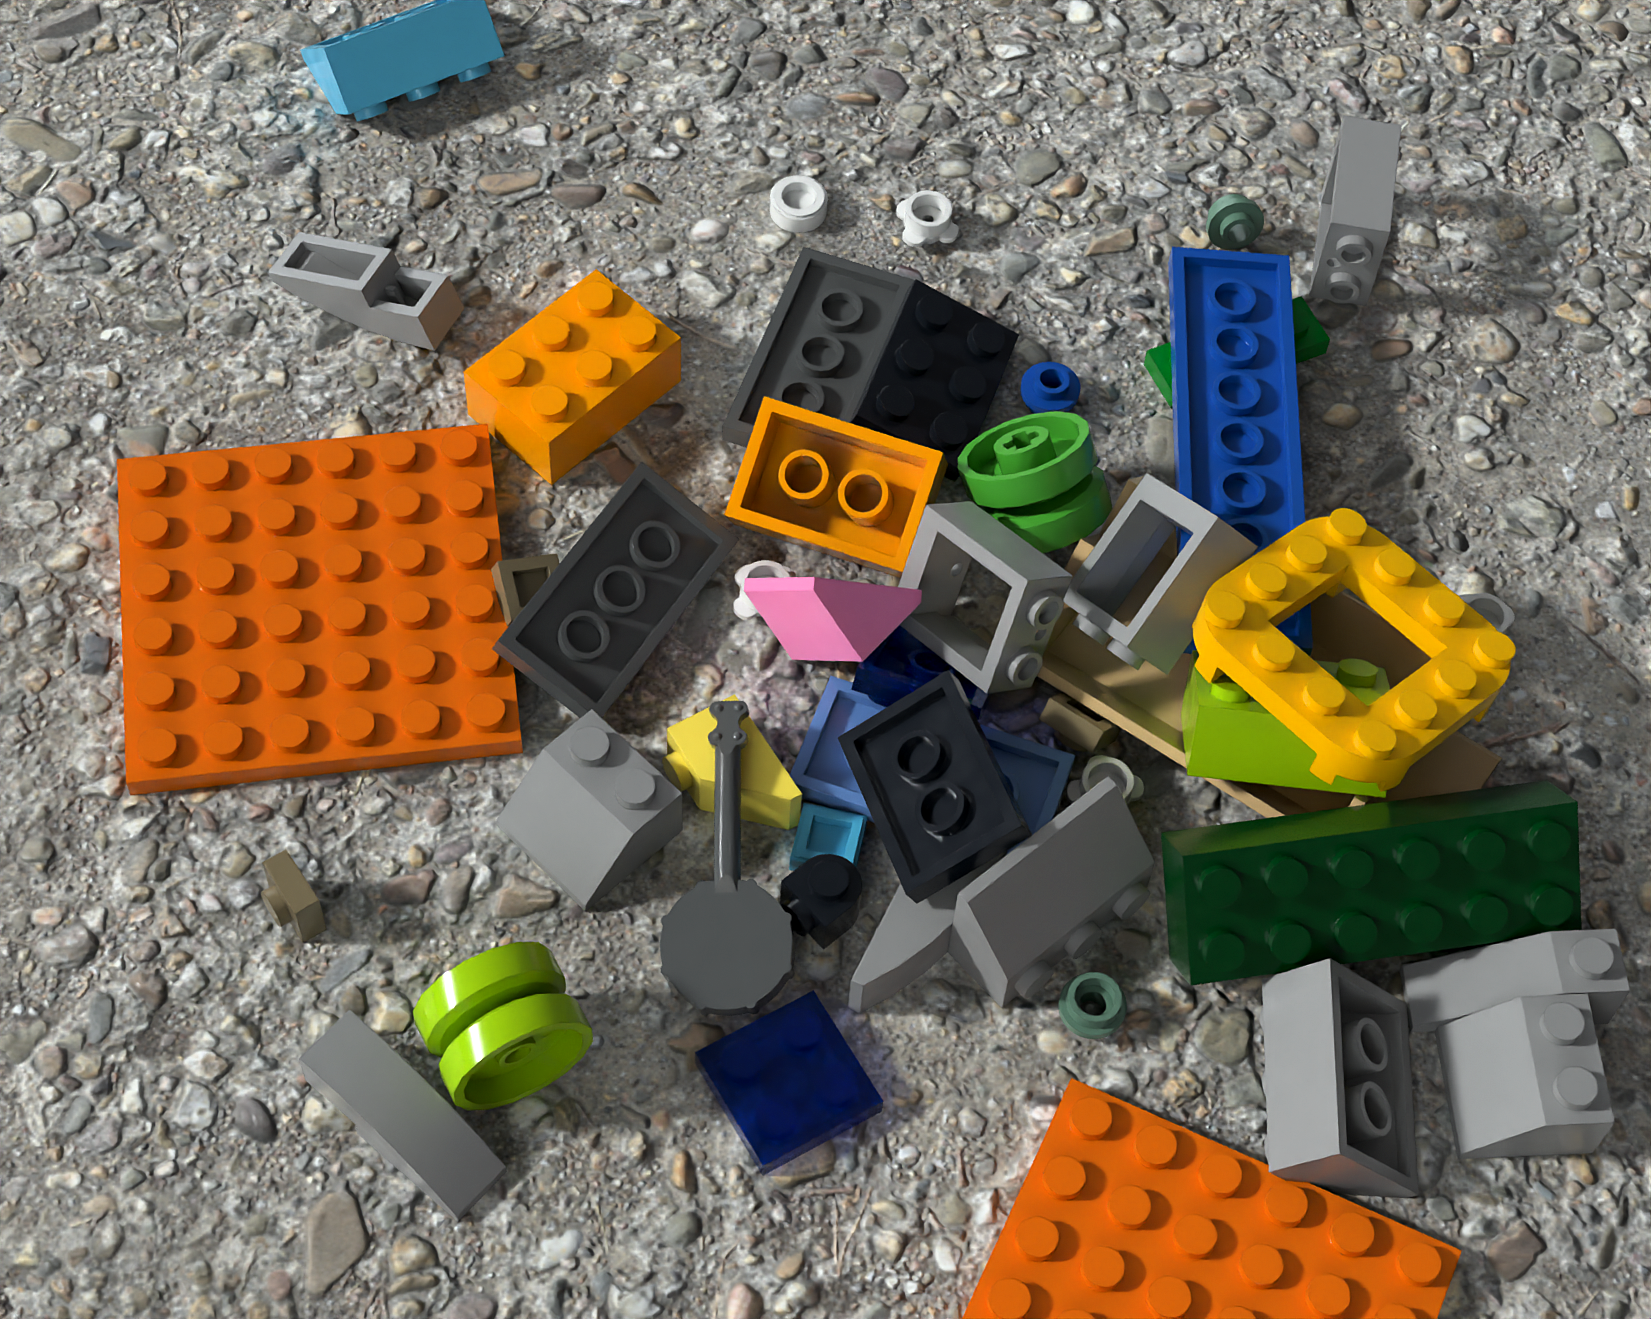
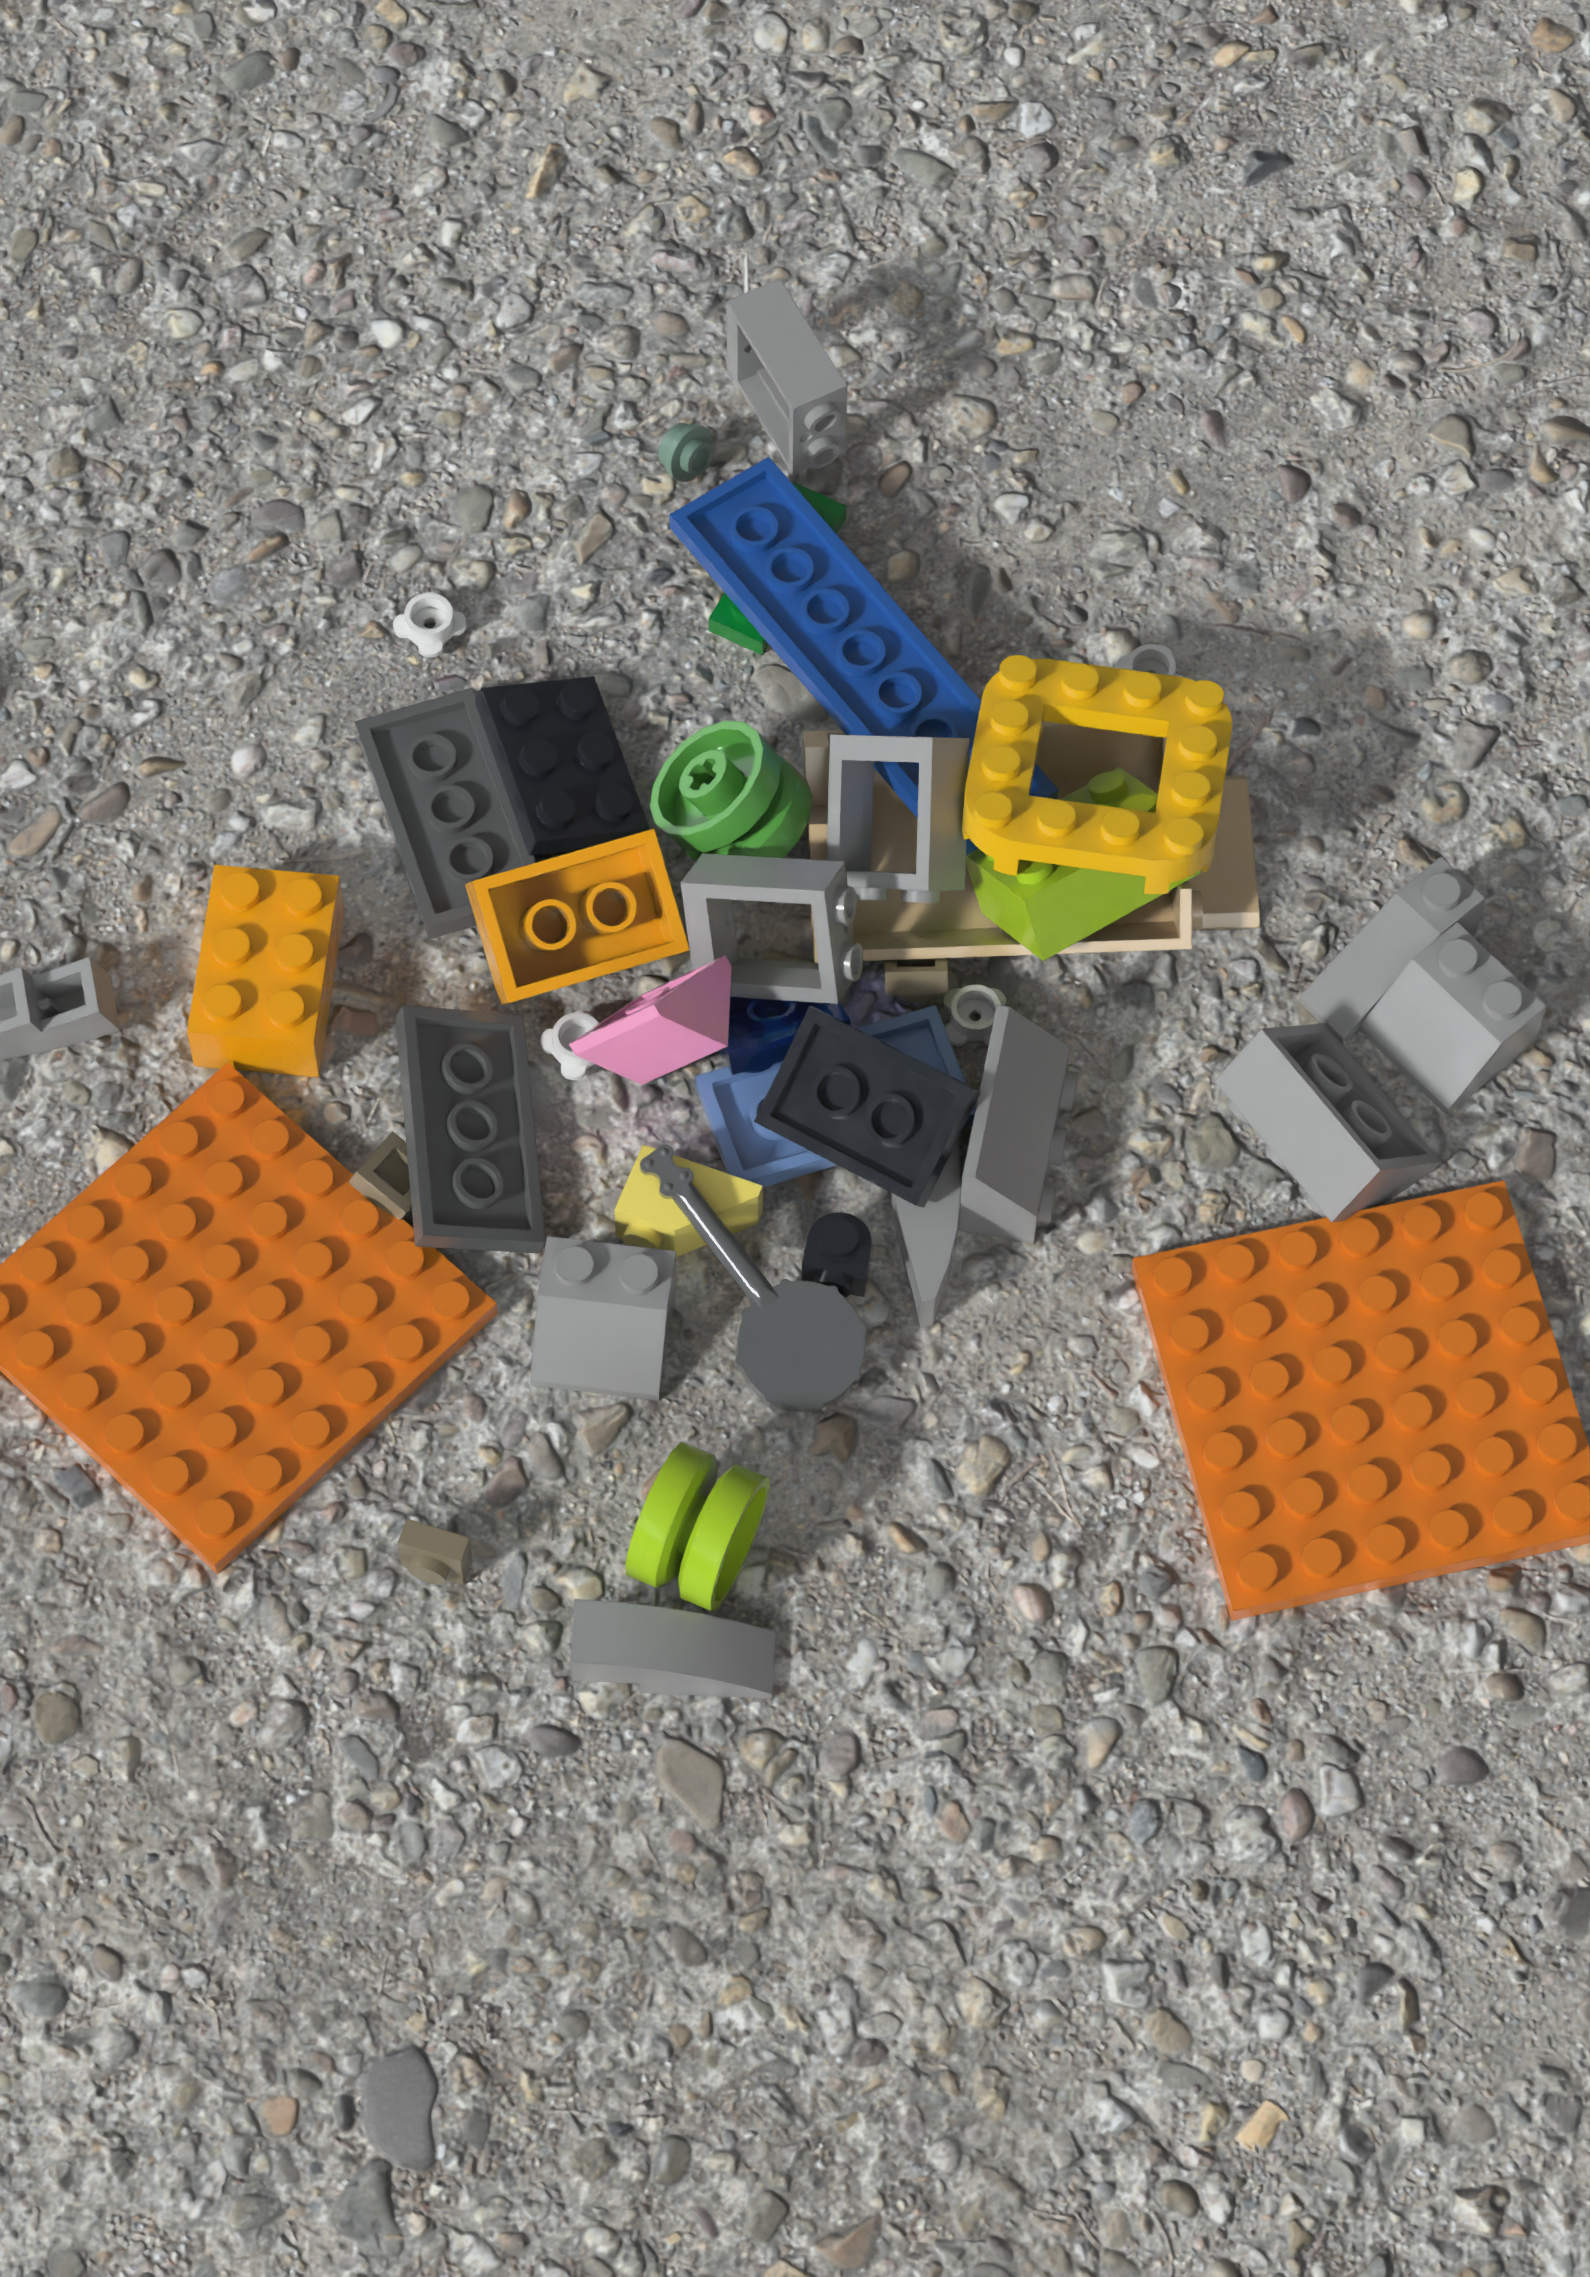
camera: 35 degrees left, 5 degrees up
(788, 1082) = (927, 1415): clear blue plate -> none
(798, 203) = (306, 683): white tile -> none
(827, 832) = (795, 1207): medium azure tile -> none
(1044, 399) = (657, 722): blue plate -> none
(1095, 988) = (1106, 1176): sand green plate -> none
(1371, 881) = (1238, 948): dark green brick -> none

